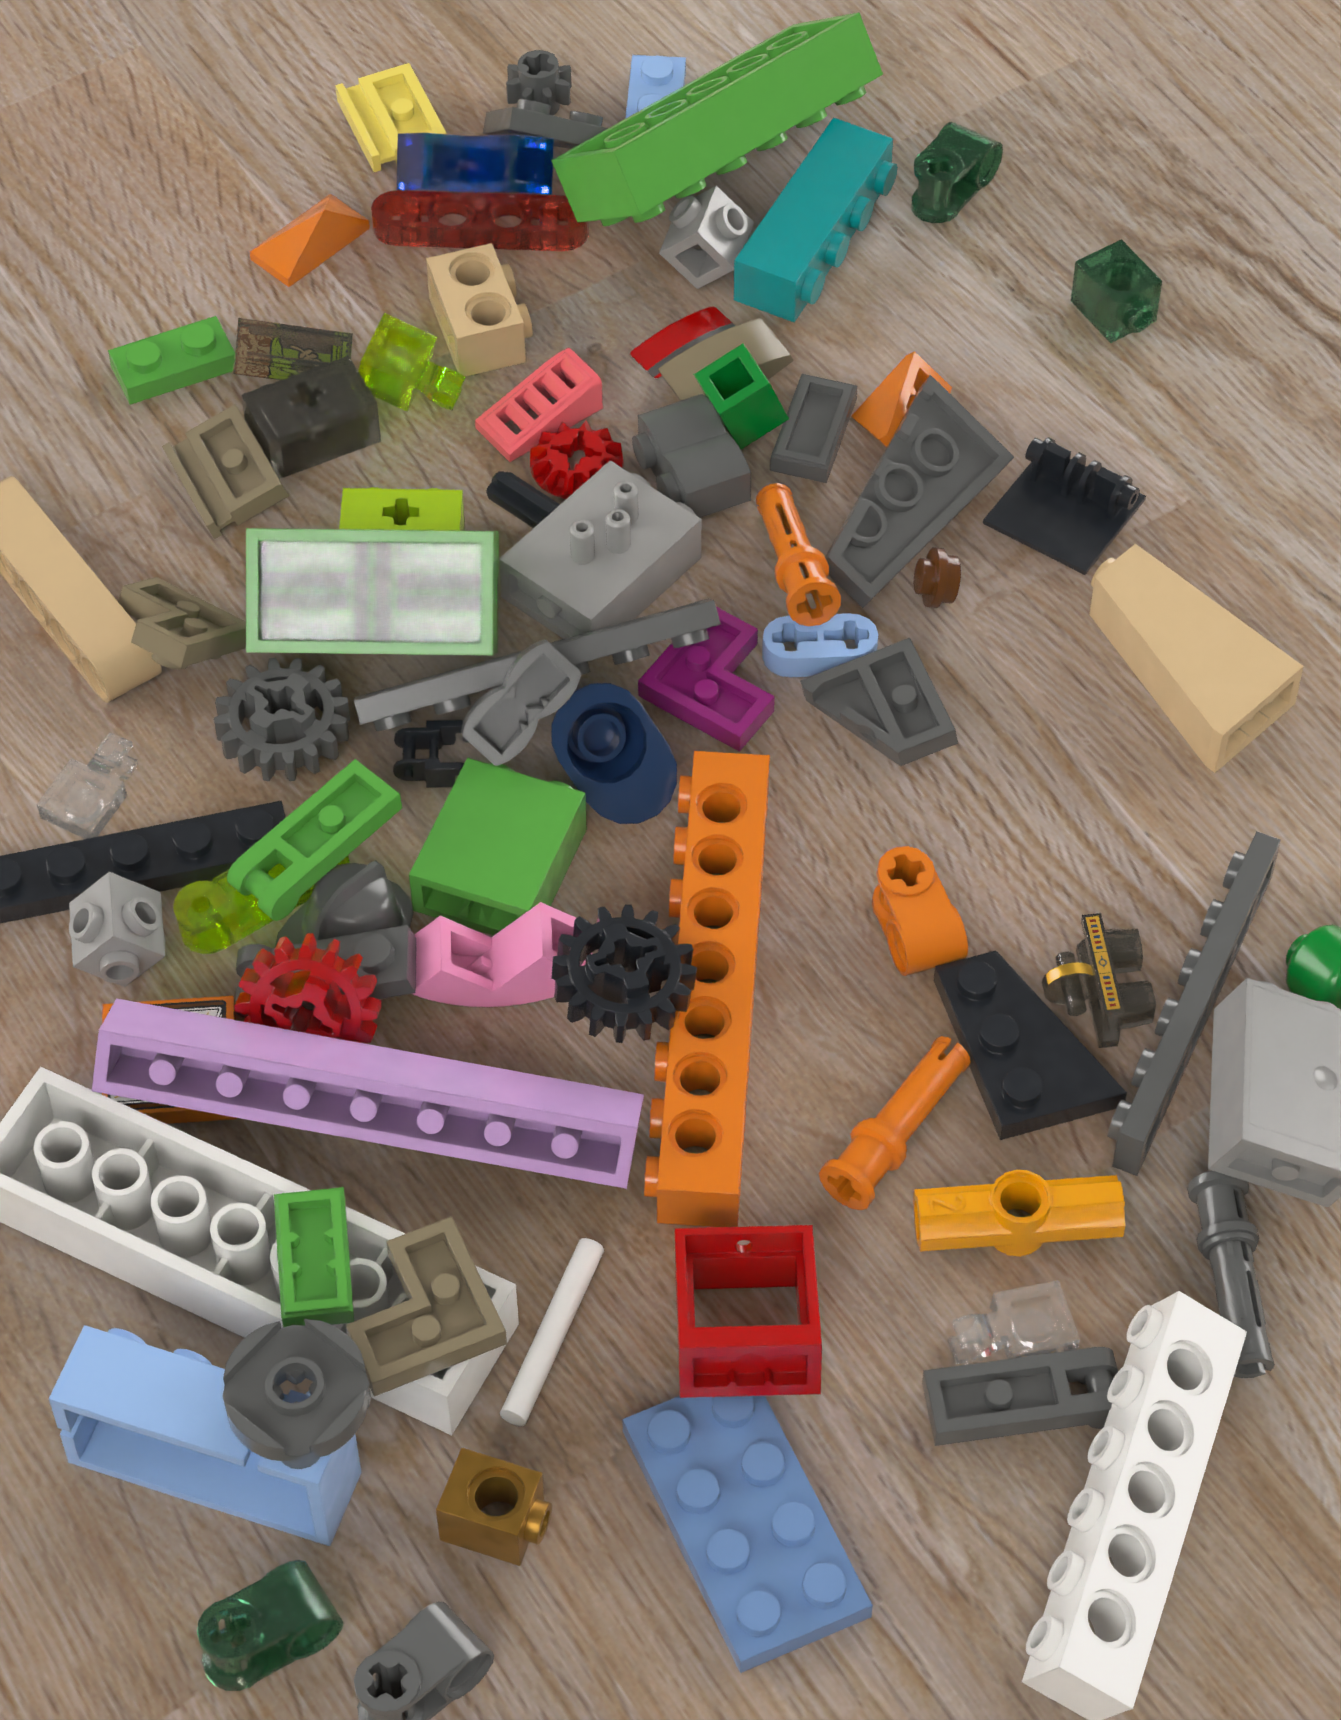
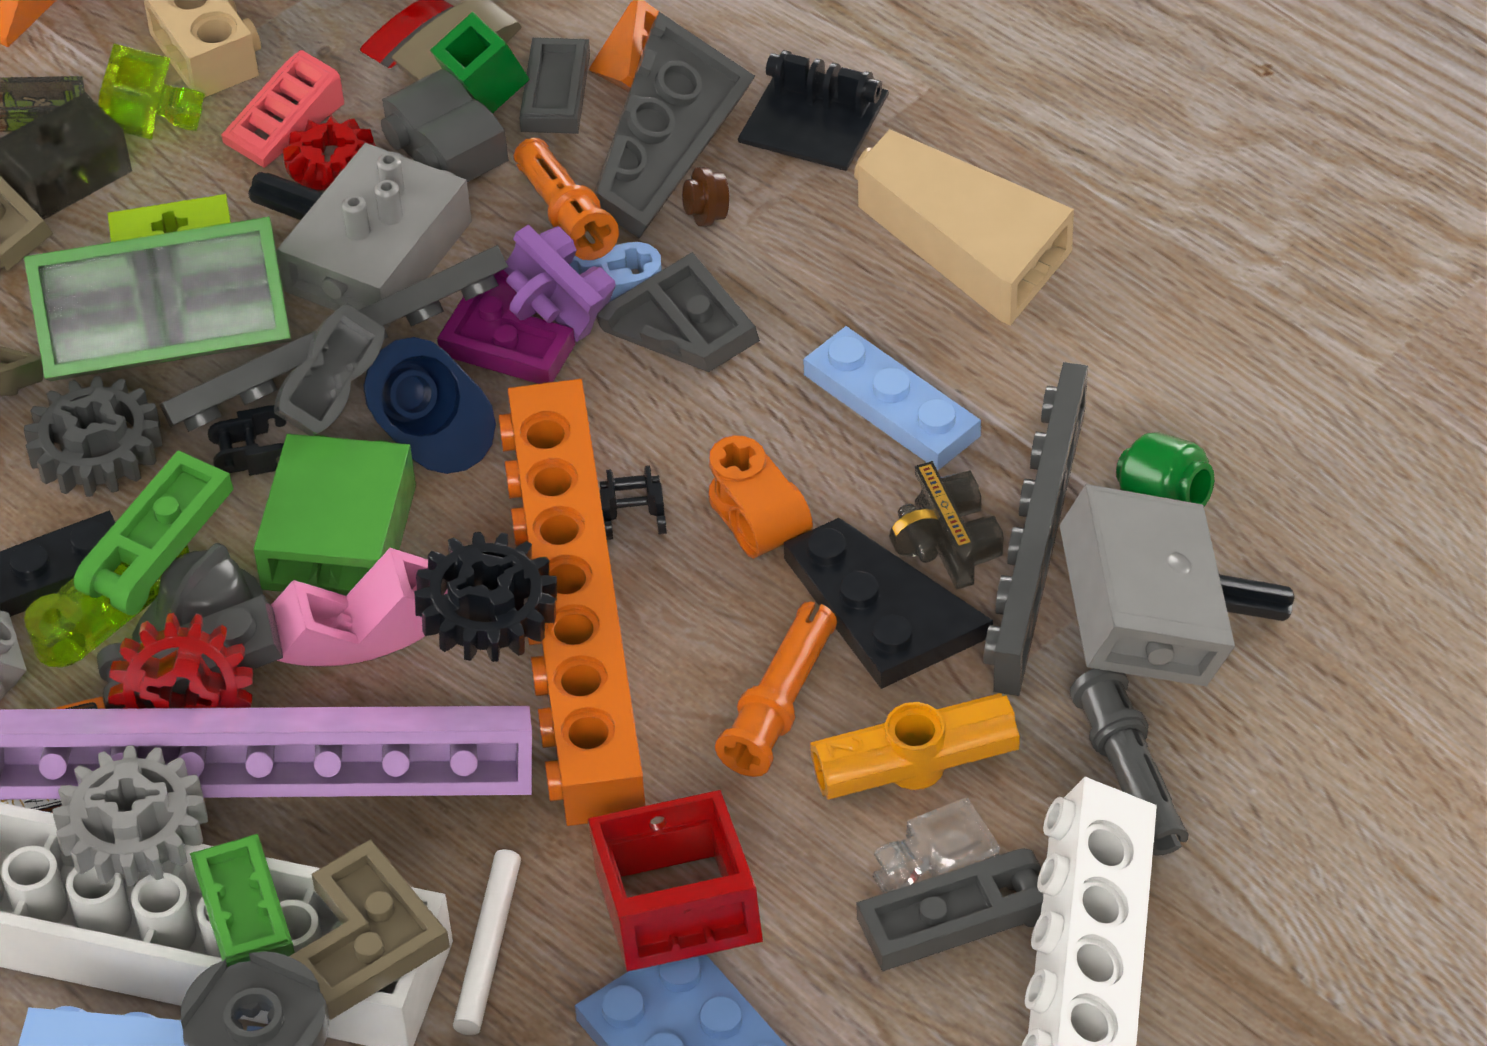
camera: 10 degrees left, 5 degrees down
(225, 1141) = (130, 815): none -> light grey gear
(760, 650) = (550, 286): none -> medium lavender hips
(772, 889) = (653, 499): none -> black piece
(1078, 830) = (892, 397): none -> light blue plate

